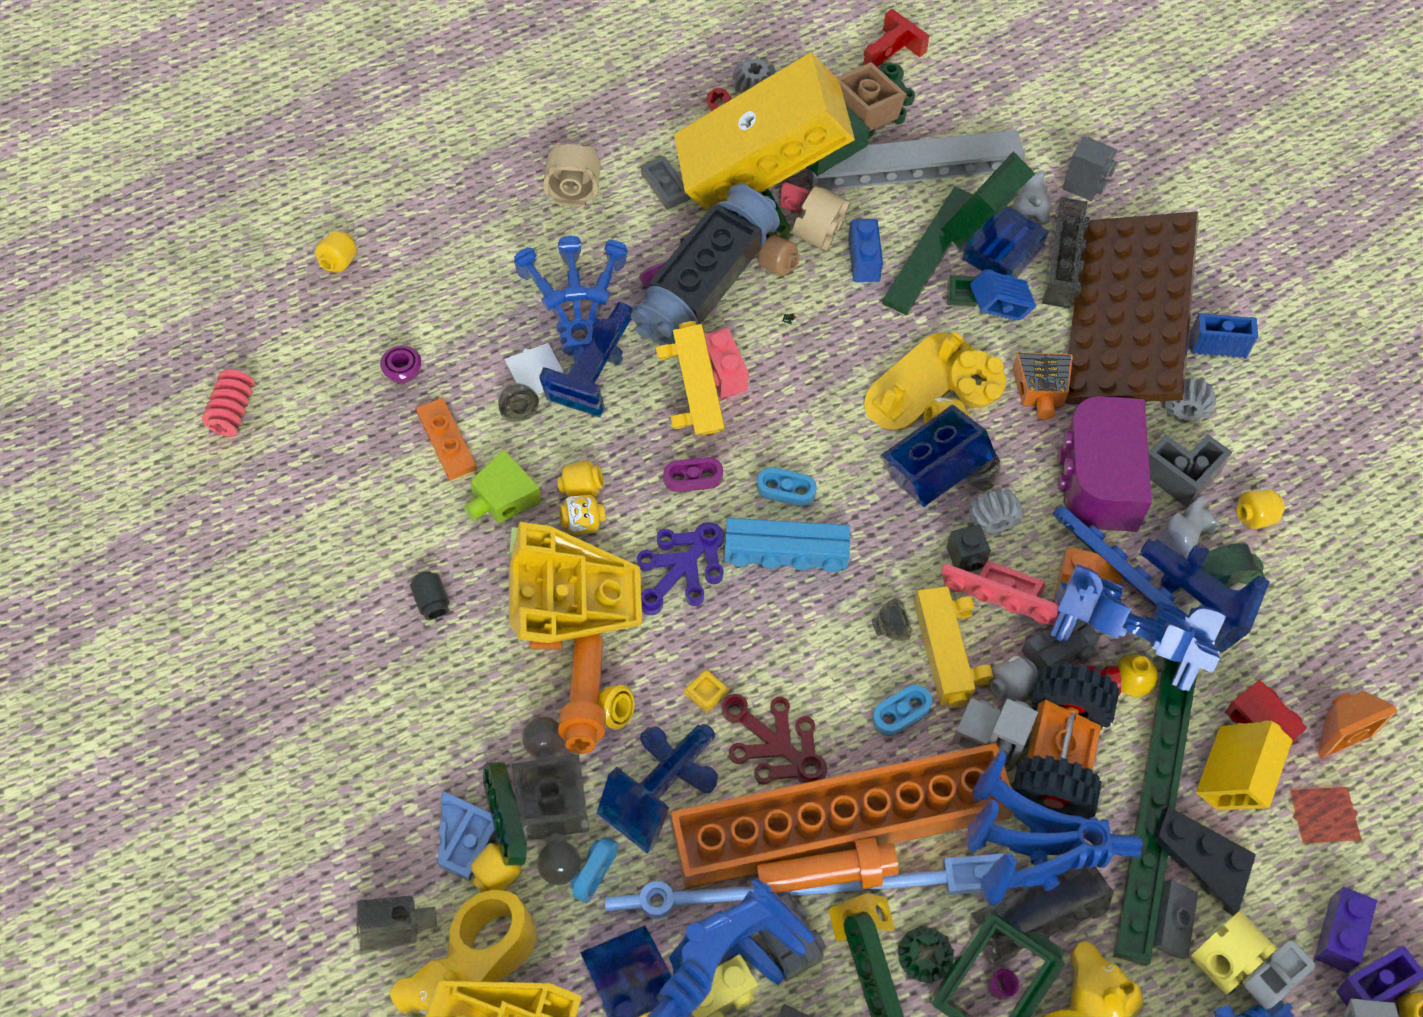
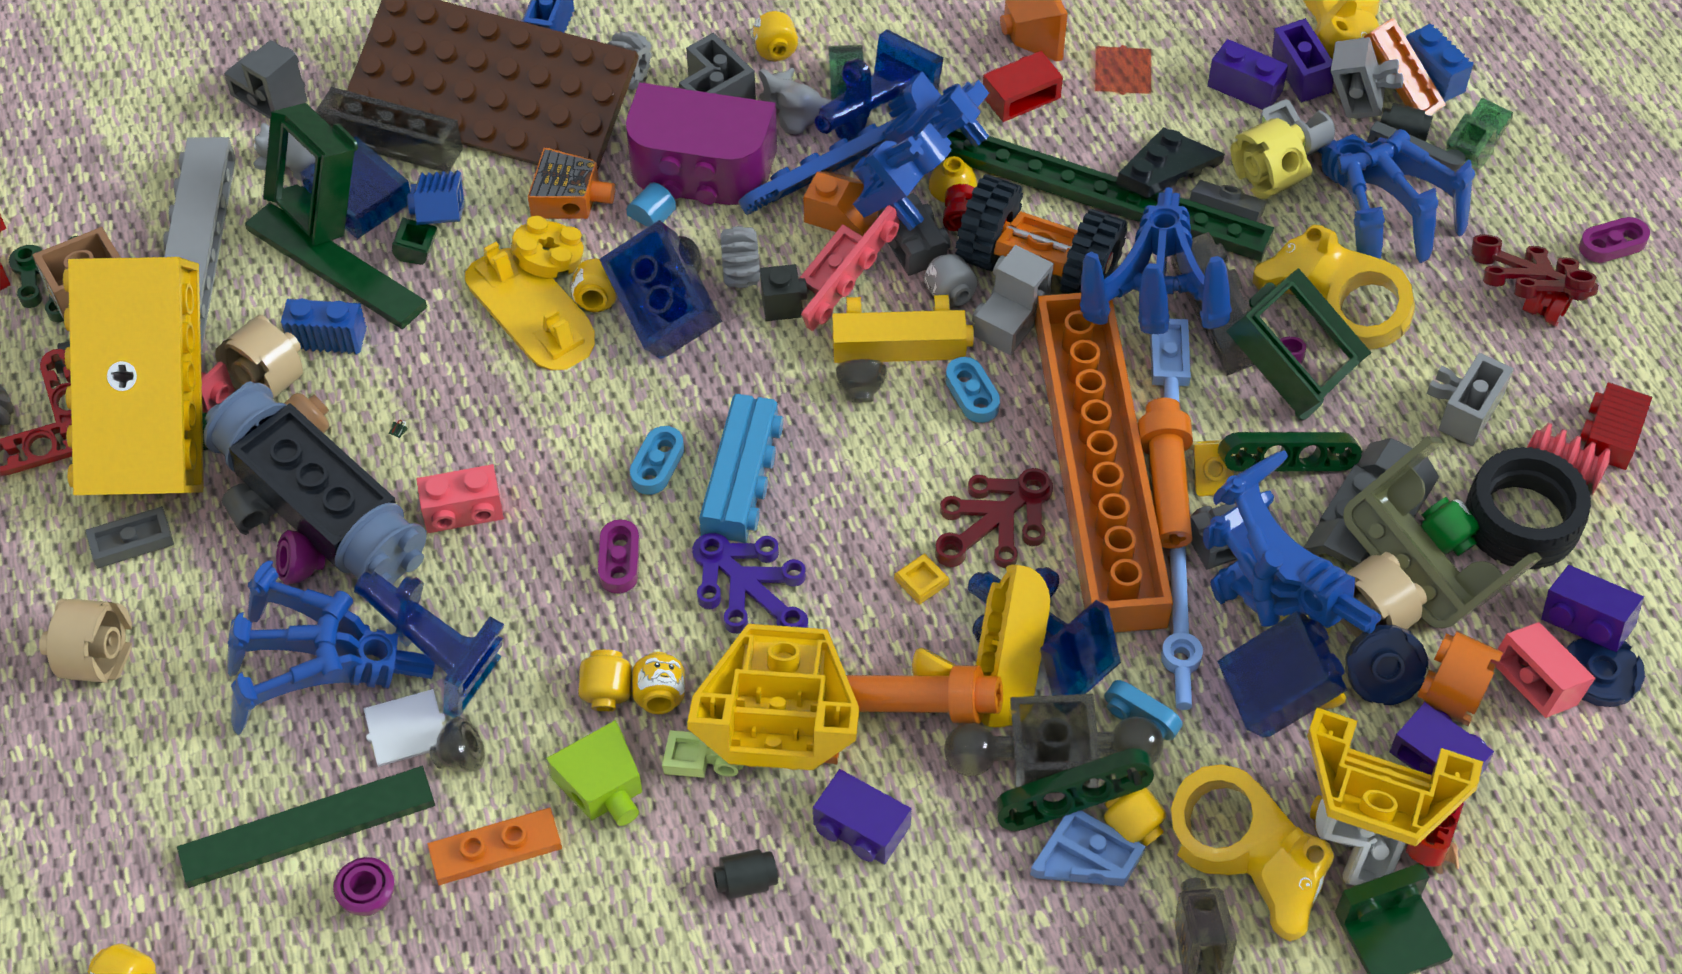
camera: 80 degrees left, 5 degrees down
(454, 330) = (305, 826): none -> dark green tile
(479, 666) = (861, 817): none -> dark purple brick
(635, 753) = (1013, 635): none -> yellow brick
(698, 380) = (493, 517): yellow brick -> none
(925, 970) = (1236, 407): dark green gear -> none
(1042, 446) = (652, 205): none -> dark azure brick
(1244, 766) = (1078, 105): yellow brick -> none

